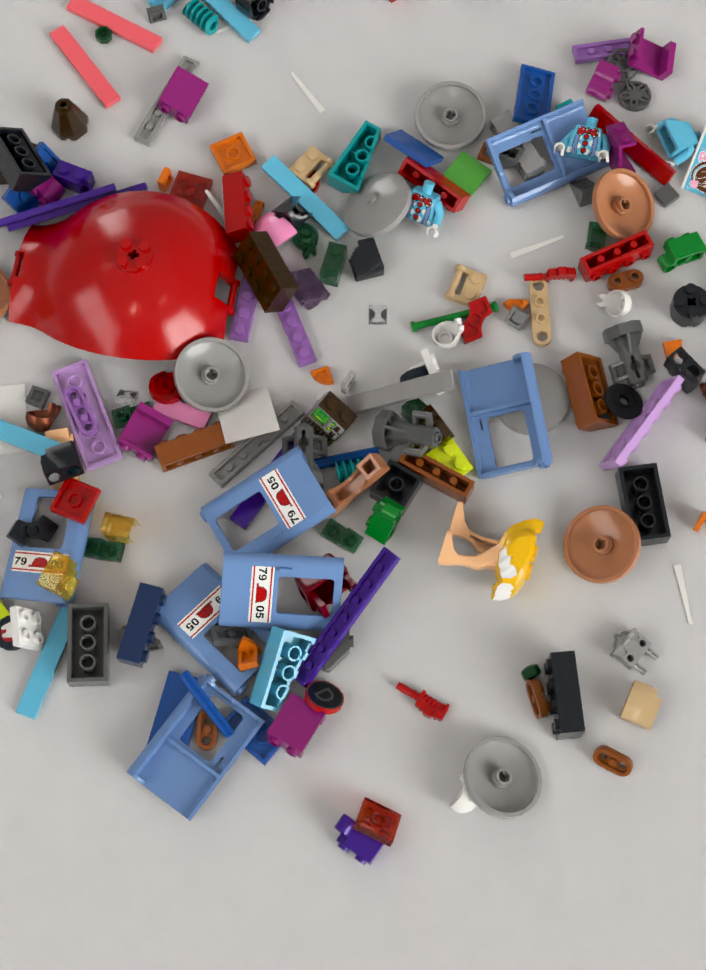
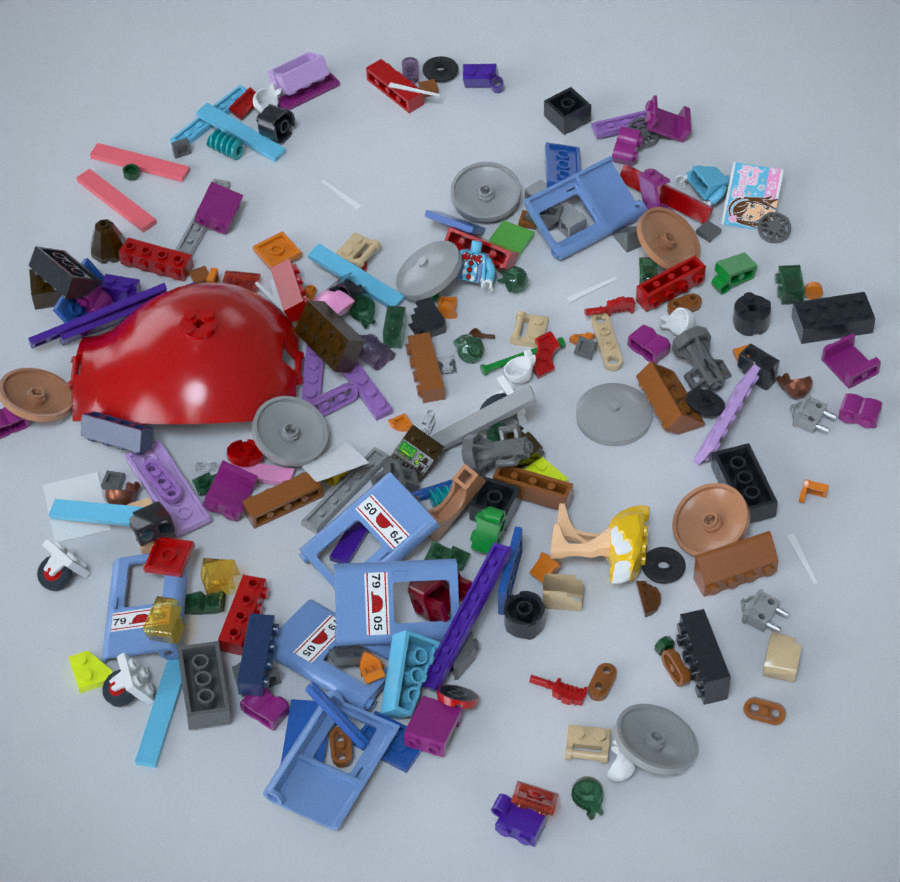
camera: 10 degrees left, 20 degrees down
(23, 532) = (132, 592): black tile -> none
(45, 348) = (117, 432): none -> brick
(113, 146) = (156, 259): none -> red brick
(138, 568) = (247, 600): none -> red brick
(145, 678) = (266, 709): none -> magenta brick
(153, 170) = (199, 274): none -> dark orange tile
(266, 338) = (338, 396): none -> medium lavender plate
(352, 164) = (398, 240): teal wedge -> none
(356, 316) = (425, 367): none -> dark orange brick
(389, 246) = (447, 307): none -> orange tile
(394, 576) = (510, 570): none -> blue tile
(399, 607) = (524, 615): none -> black brick
(403, 300) = (469, 348): none -> clear green piece
(414, 284) = (477, 333): none -> reddish brown hand
(429, 824) = (588, 795): none -> clear green piece
(430, 568) = (544, 566): none -> orange tile
(440, 759) = (588, 738): none -> tan plate
(442, 590) = (559, 591): none -> tan piece
(462, 226) = (515, 279): none -> clear green piece
(464, 699) = (602, 680): none -> dark orange plate
(500, 391) = (583, 408): medium blue piece -> none
(526, 614) = (649, 597): none -> reddish brown tile
(550, 27) = (567, 110): none -> black brick
(556, 572) = (664, 575): none -> black wheel
(581, 324) = (649, 344): none -> magenta brick
(585, 142) = (621, 193): torso -> none
(616, 597) = (735, 564): none -> dark orange slope
(634, 96) = (659, 156): dark grey wheel -> none

